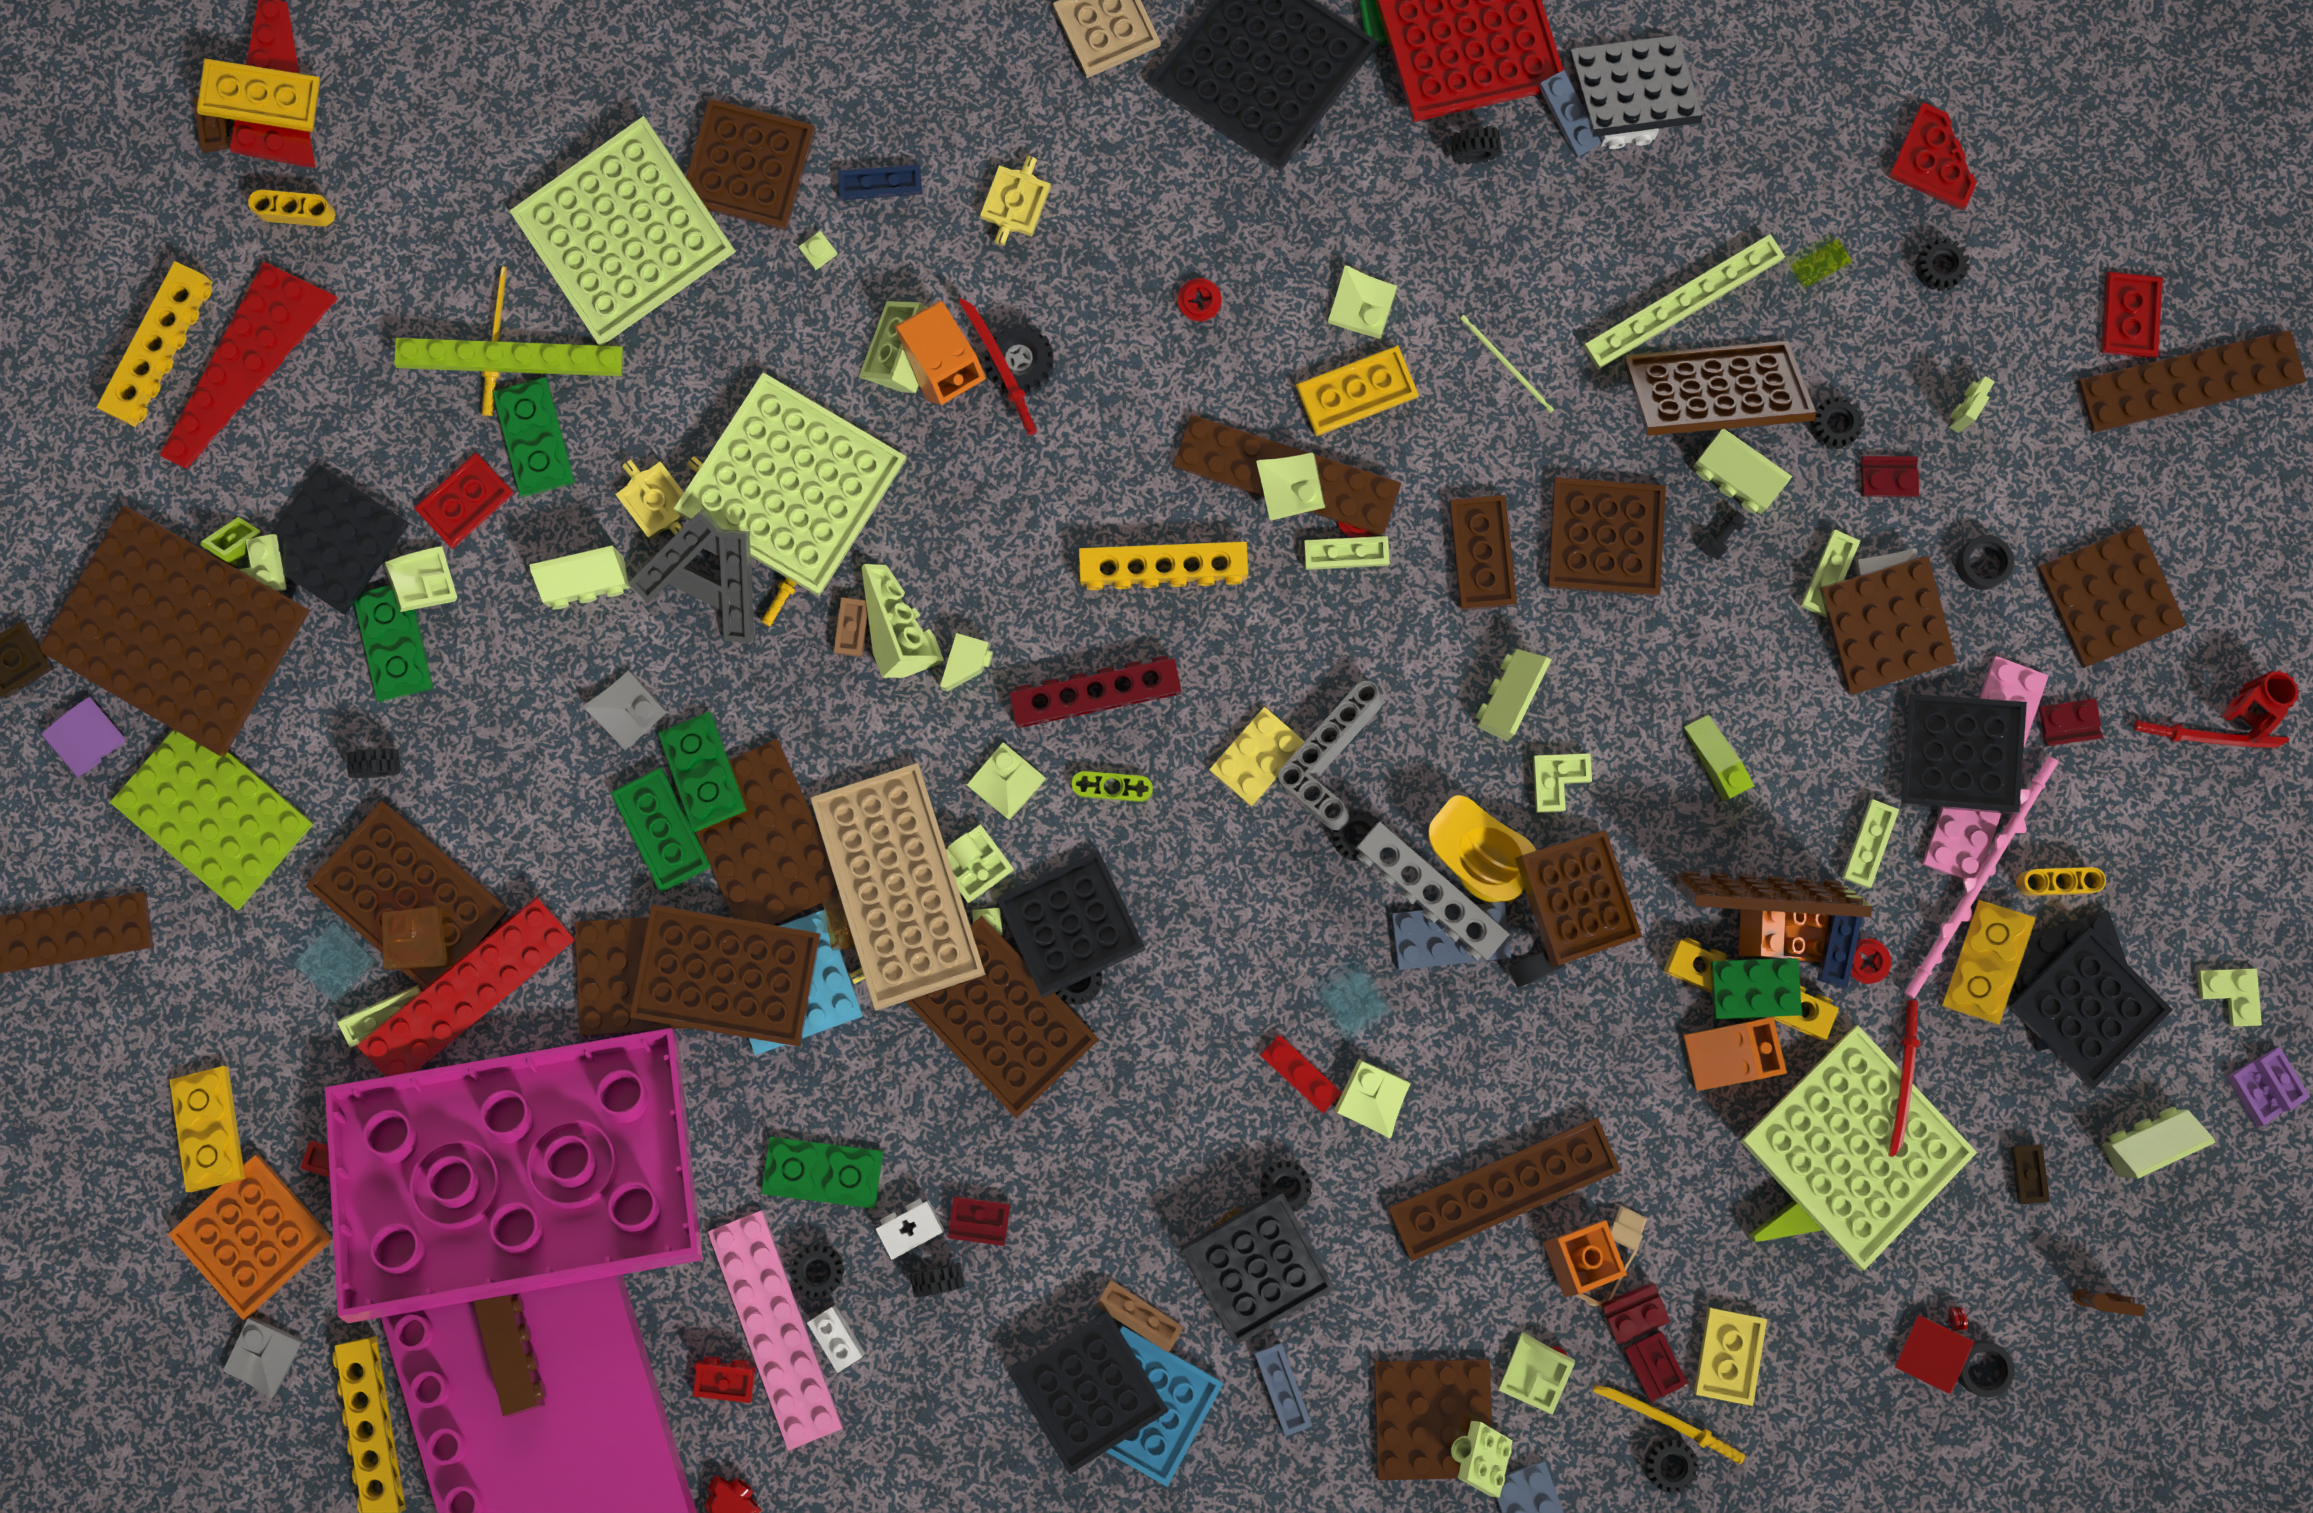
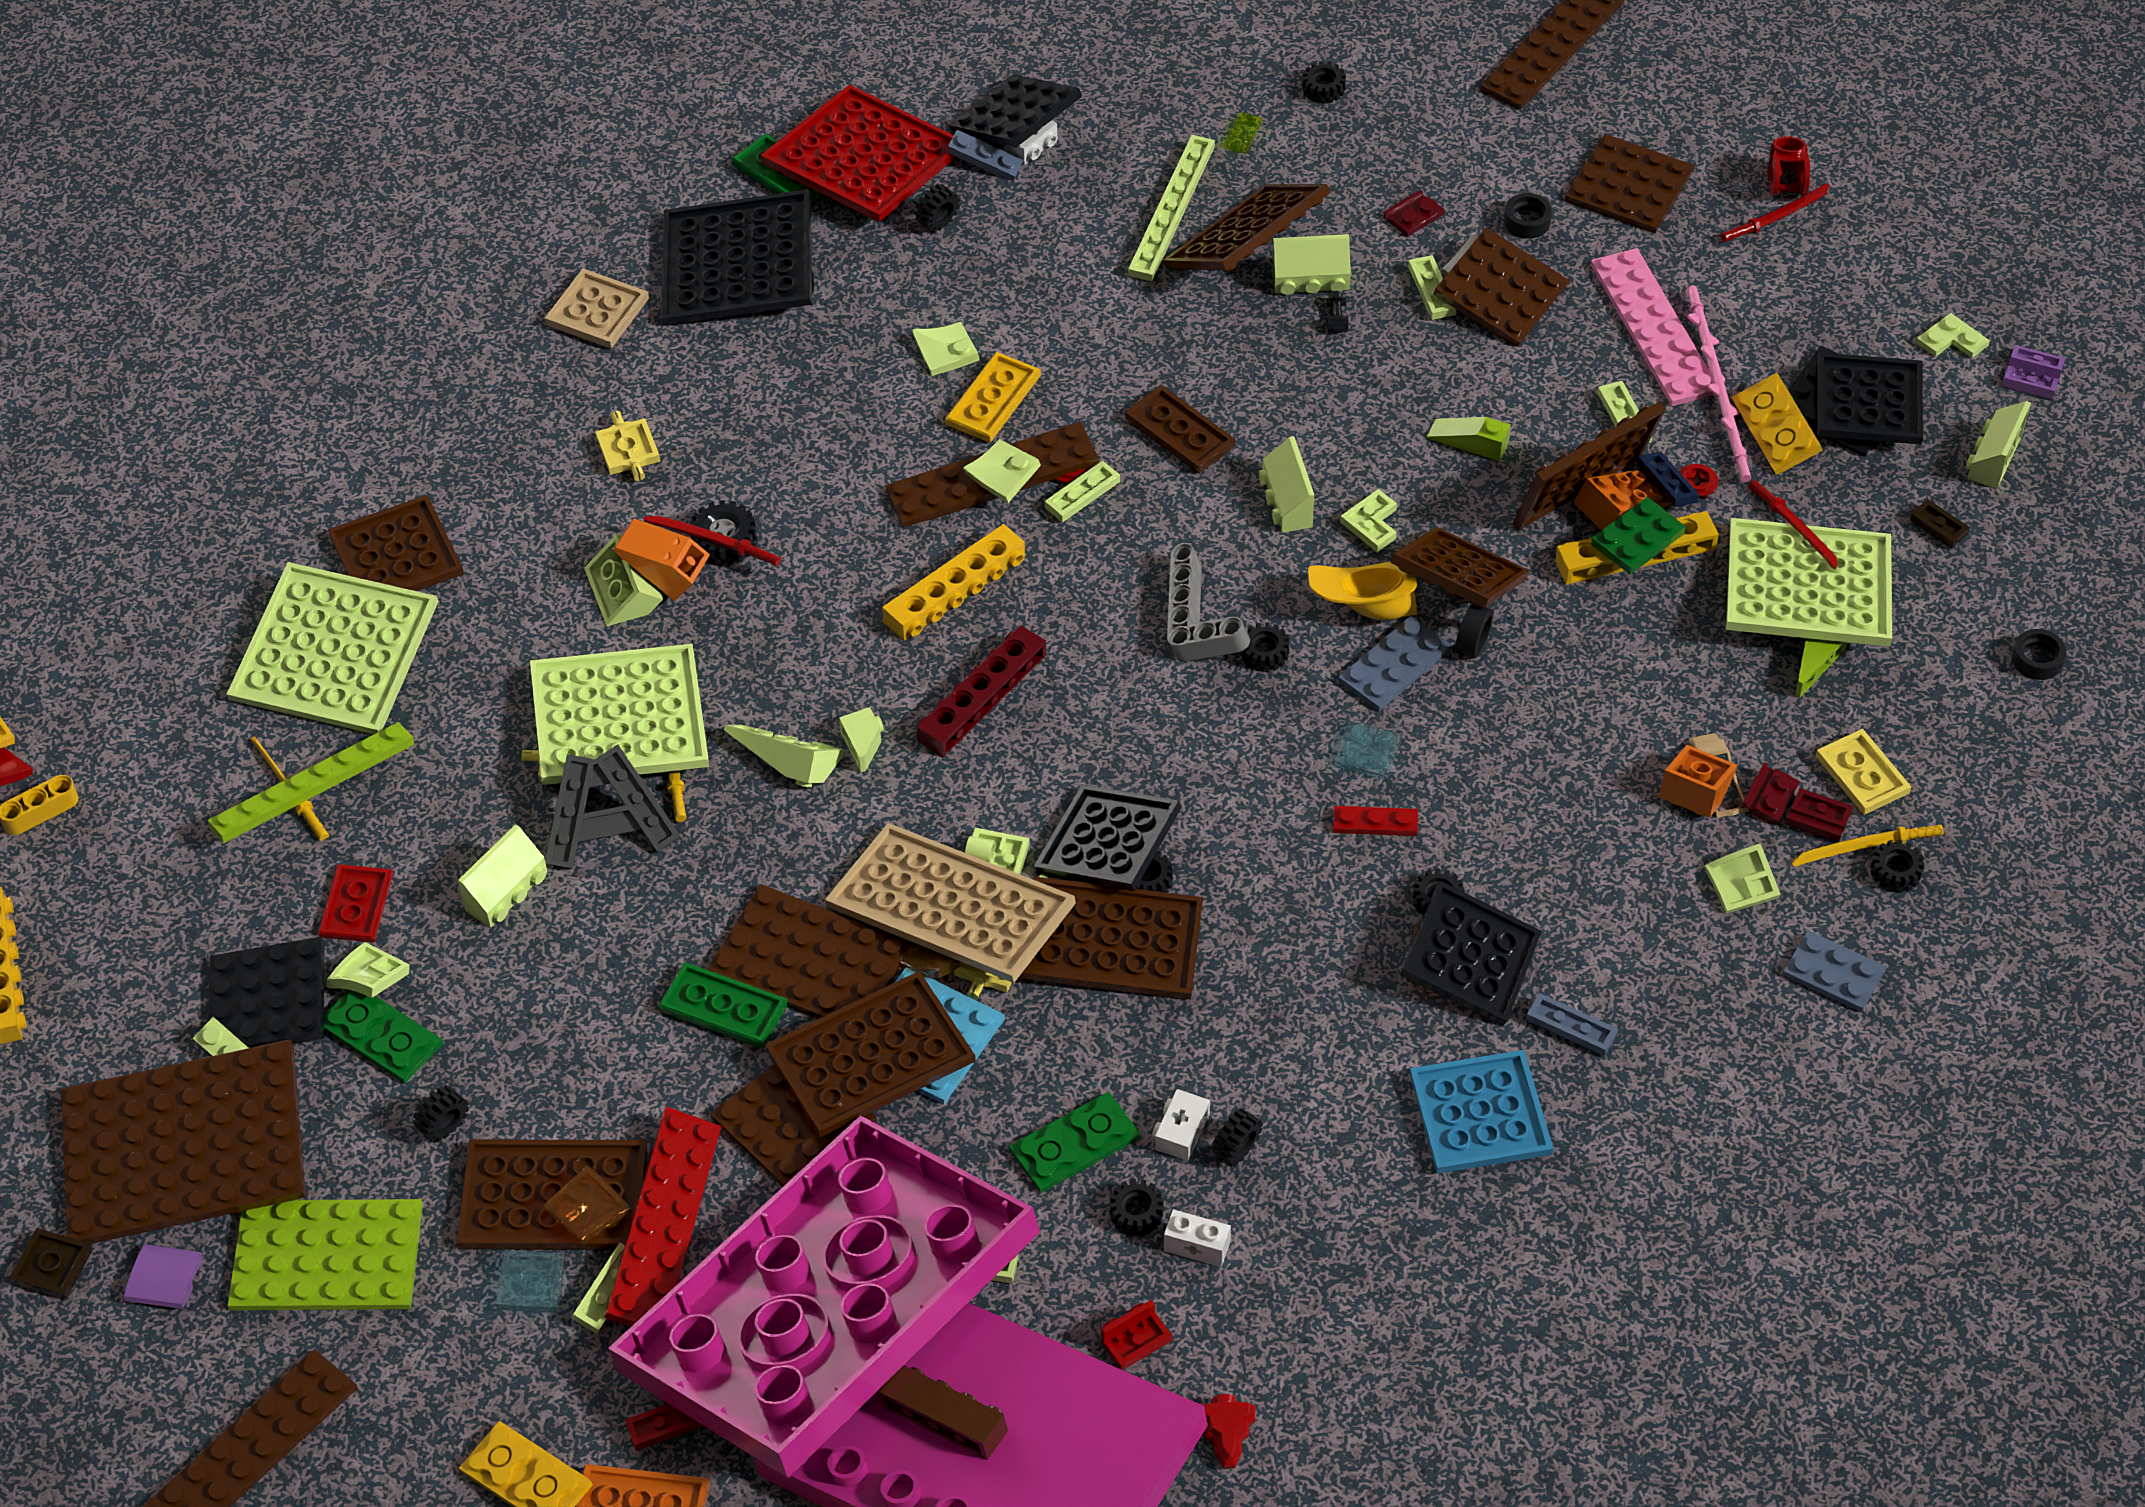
camera: 35 degrees left, 30 degrees down
(230, 541) = (178, 1051): lime slope -> none
(261, 334) = (82, 915): red wing -> none
(533, 437) = (377, 825): green piece -> none
(626, 709) = (620, 948): light grey plate -> none
(652, 499) = (515, 799): light yellow plate -> none
(702, 771) = (722, 938): green piece -> none
(775, 1330) = (1144, 1274): bright pink plate -> none
(818, 250) = (500, 570): yellowish green plate -> none
(851, 627) = (752, 776): medium nougat plate -> none
(880, 182) = (511, 499): dark blue plate -> none
(979, 1221) = (1230, 1083): dark red plate -> none
(1006, 781) = (967, 792): yellowish green plate -> none
(1088, 1392) = (1428, 1123): black plate -> none
(1090, 791) = (1055, 732): lime beam -> none
(1139, 1316) = (1415, 1055): medium nougat plate -> none
(1207, 290) = (824, 410): red gear -> none
(1257, 756) = (1141, 653): light yellow plate -> none
(1373, 1098) = (1442, 796): yellowish green plate -> none
(1424, 1411) = (1701, 965): reddish brown plate -> none
(1482, 1458) = (1759, 948): yellowish green plate -> none
(1490, 934) = (1353, 633): light grey brick -> none
(1504, 1189) = (1595, 786): reddish brown plate -> none
(1506, 363) = (1081, 318): yellowish green piece -> none
(1606, 536) = (1257, 365): reddish brown plate -> none
(1735, 1053) = (1668, 588): orange slope -> none
(1852, 418) = (1347, 195): black tyre -> none
(1934, 159) = (1258, 35): red plate -> none
(1934, 1354) = (1996, 666): red tile -> none
(1957, 1318) = (1988, 638): red piece -> none
(1964, 753) = (1629, 319): black plate -> none
(1969, 410) = (1425, 133): yellowish green plate -> none
(2070, 722) = (1680, 265): dark red plate -> none
(2072, 877) = (1772, 349): yellow beam -> none
(2109, 1302) = (2077, 548): reddish brown plate -> none
(2131, 315) = (1476, 34): red tile -> none

